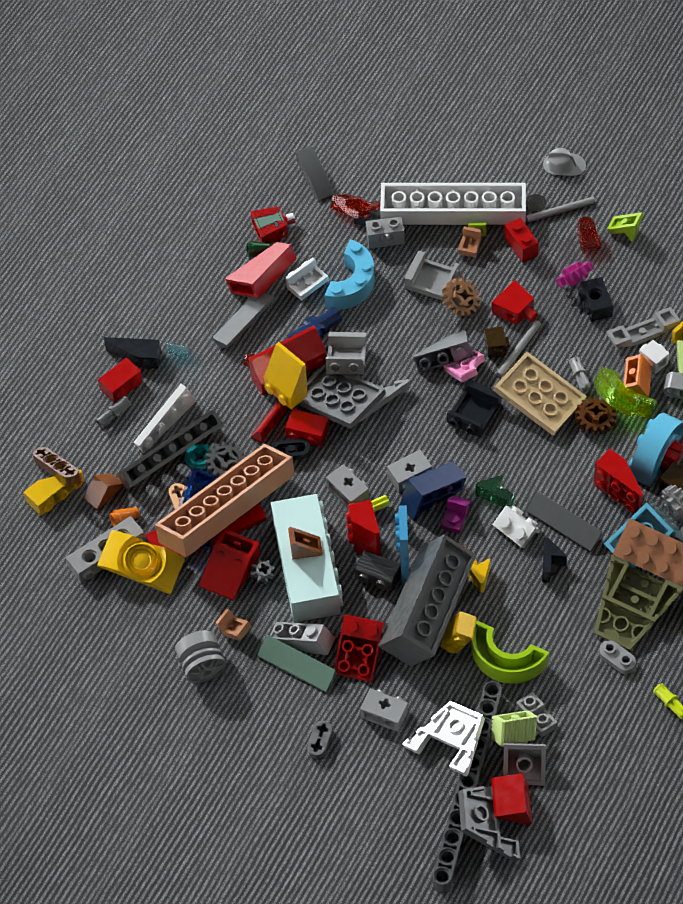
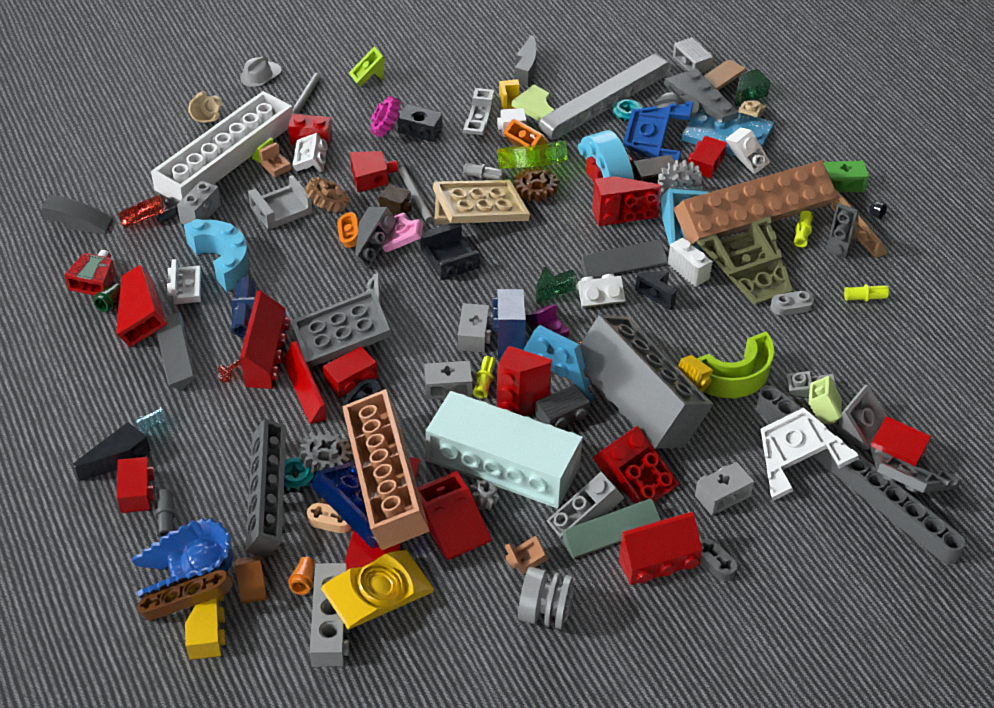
camera: 60 degrees left, 10 degrees down
(91, 449) = (188, 553): none -> blue piece
(169, 413) = (227, 480): white wing -> none
(286, 377) = (296, 335): yellow slope -> none
(293, 699) = (660, 548): none -> red slope
(304, 544) = (504, 429): dark orange slope -> none
(346, 353) = (302, 300): light grey panel -> none
(440, 332) = (348, 229): none -> orange plate
(485, 161) = (205, 108): none -> tan hair
(500, 257) = (310, 152): none -> white bracket
(588, 234) = (349, 94): clear red piece -> none
(596, 564) = (689, 262): none -> white brick

